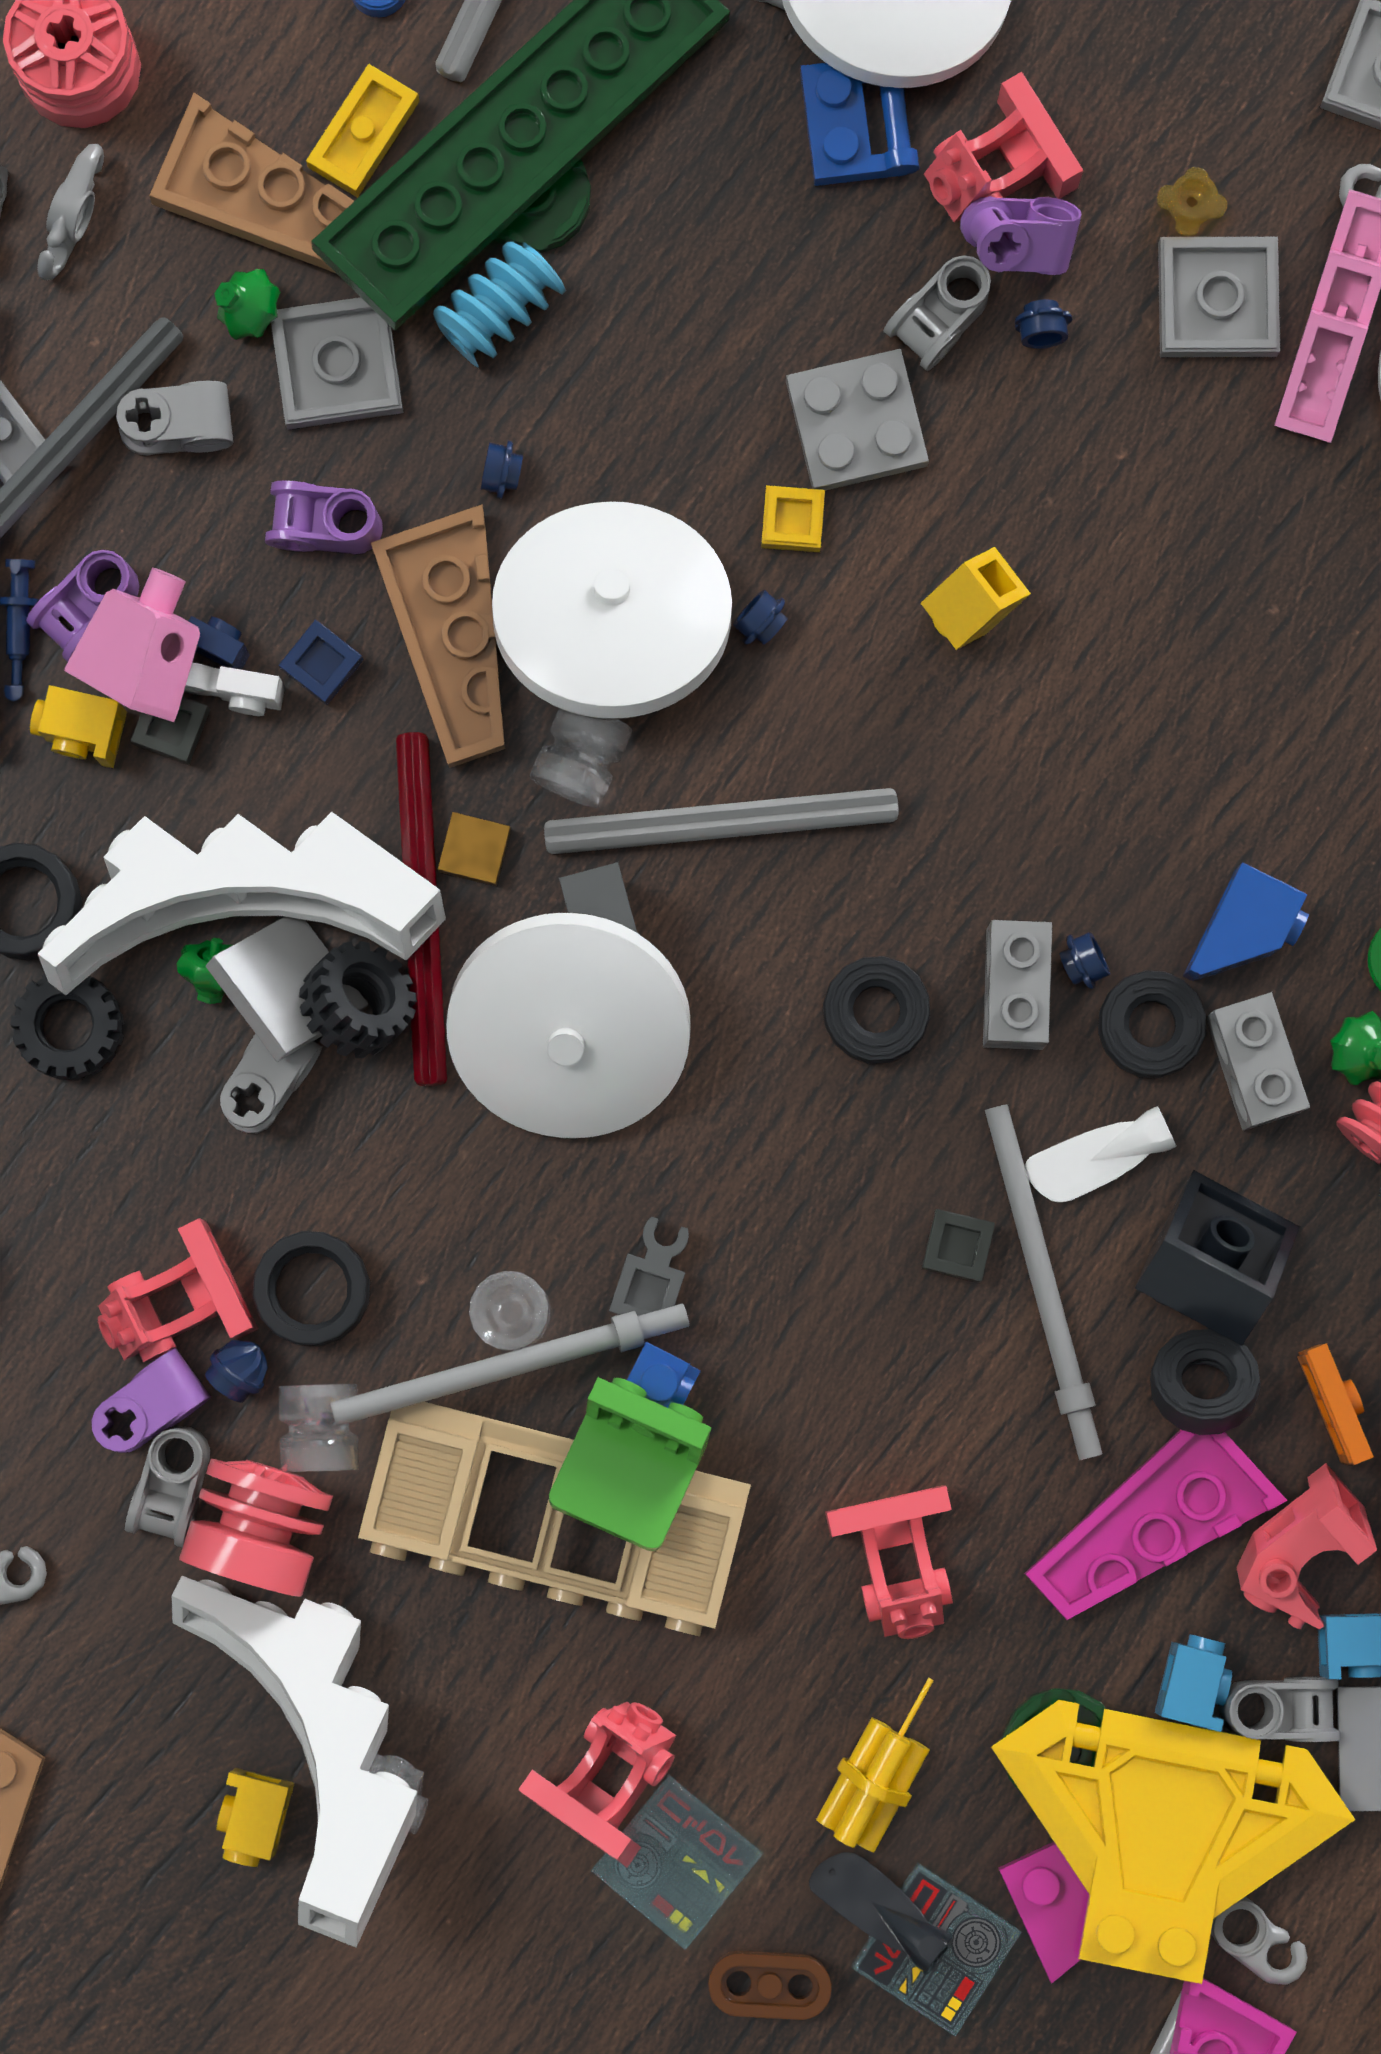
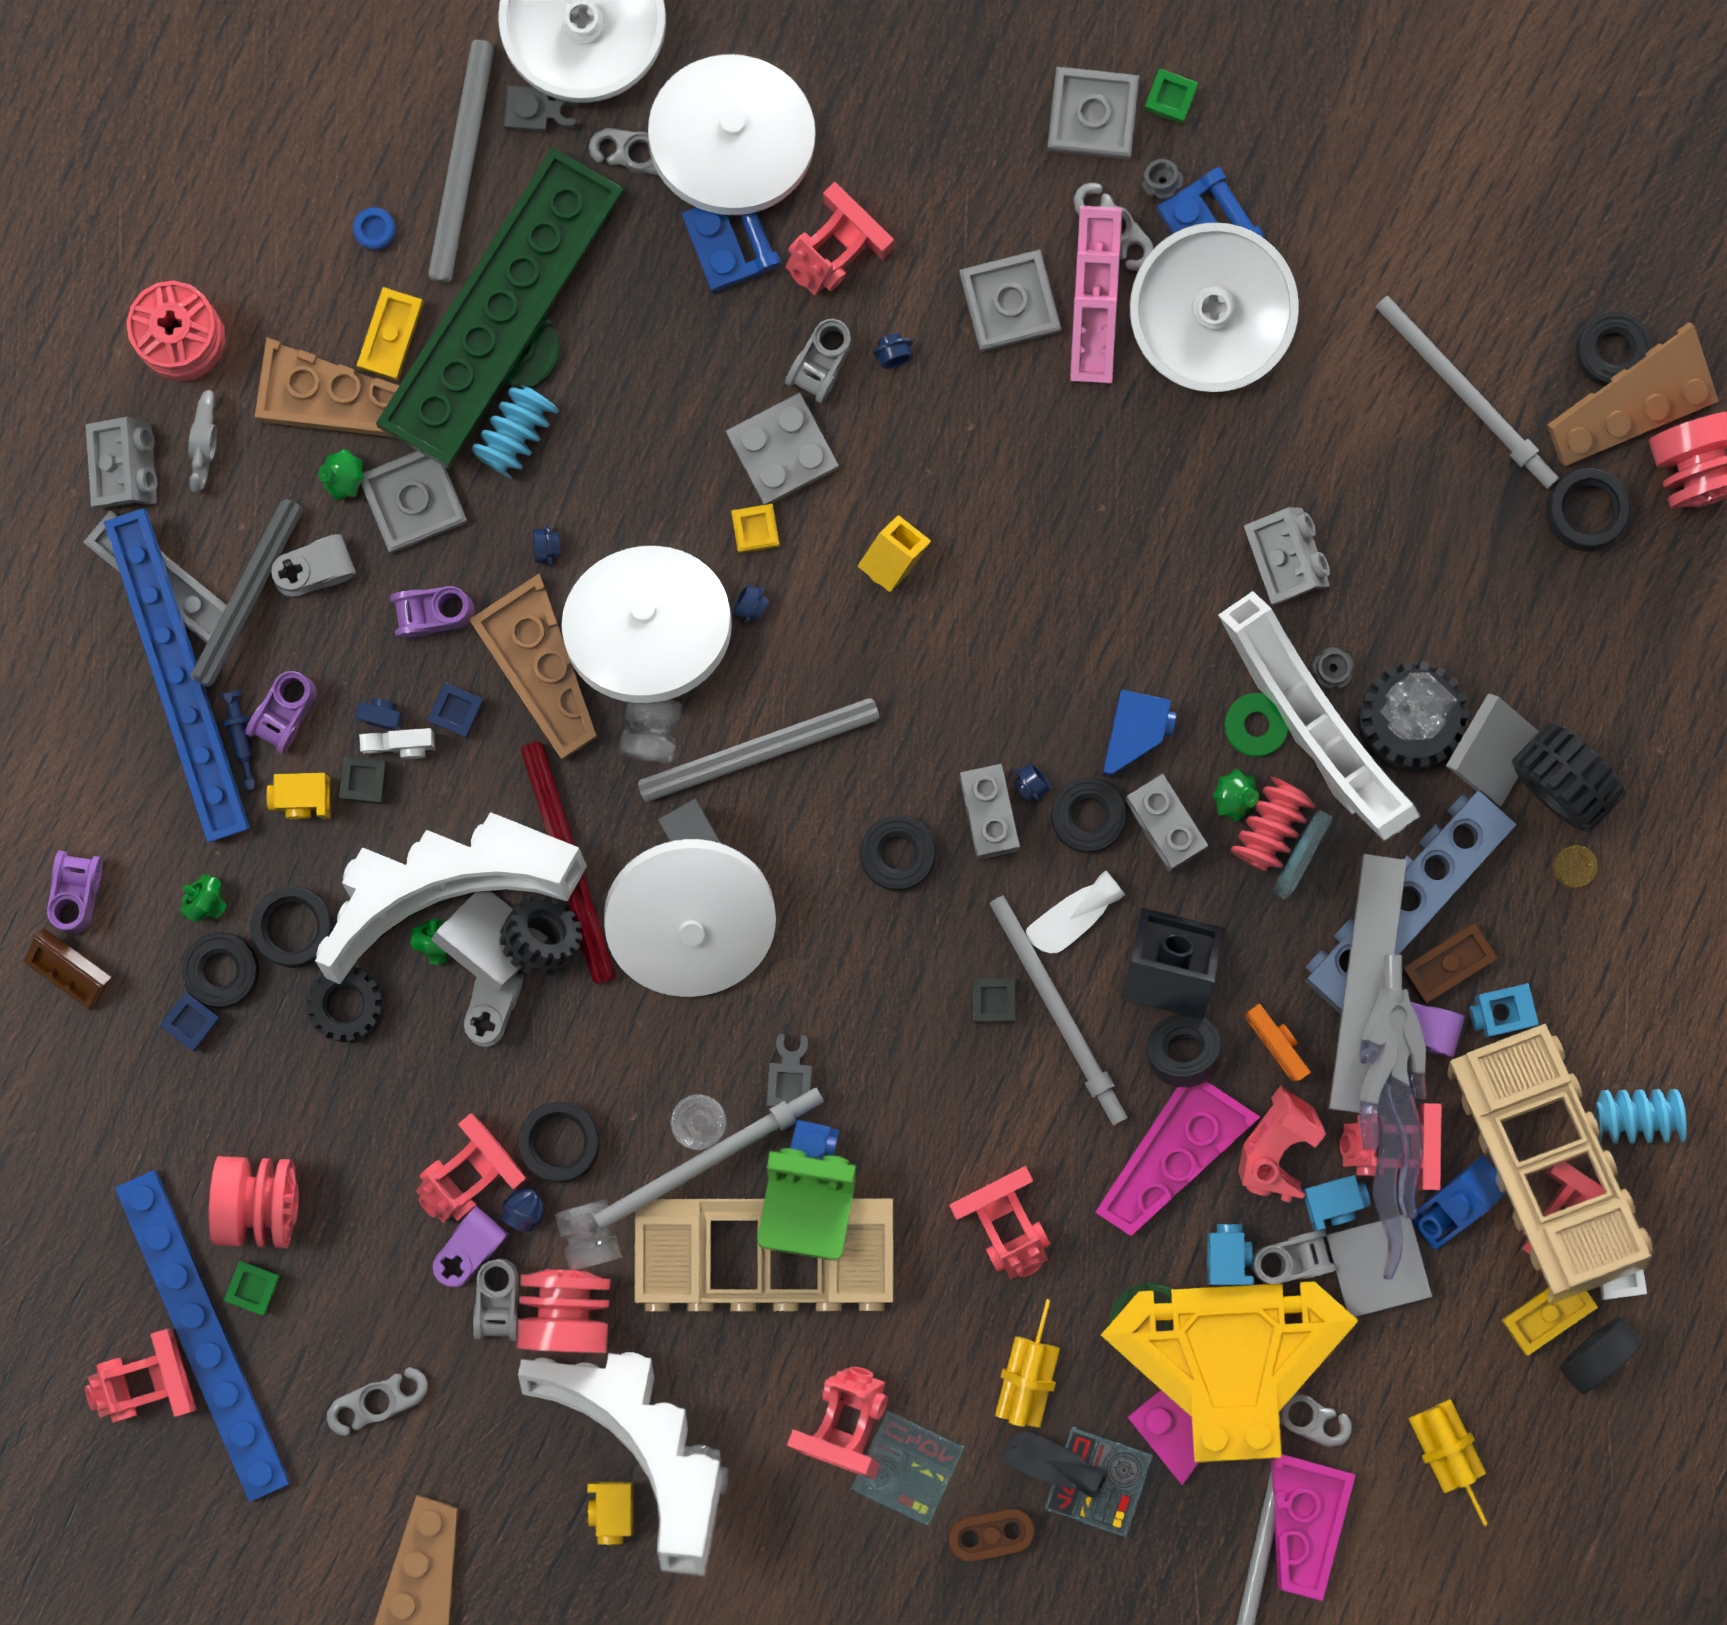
camera: 10 degrees left, 0 degrees up
(139, 648) = (329, 733): bright pink torso -> none
(474, 849) = (594, 812): pearl gold tile -> none
(1022, 233) = (863, 293): medium lavender piece -> none
(1196, 185) = (975, 251): clear yellow plate -> none

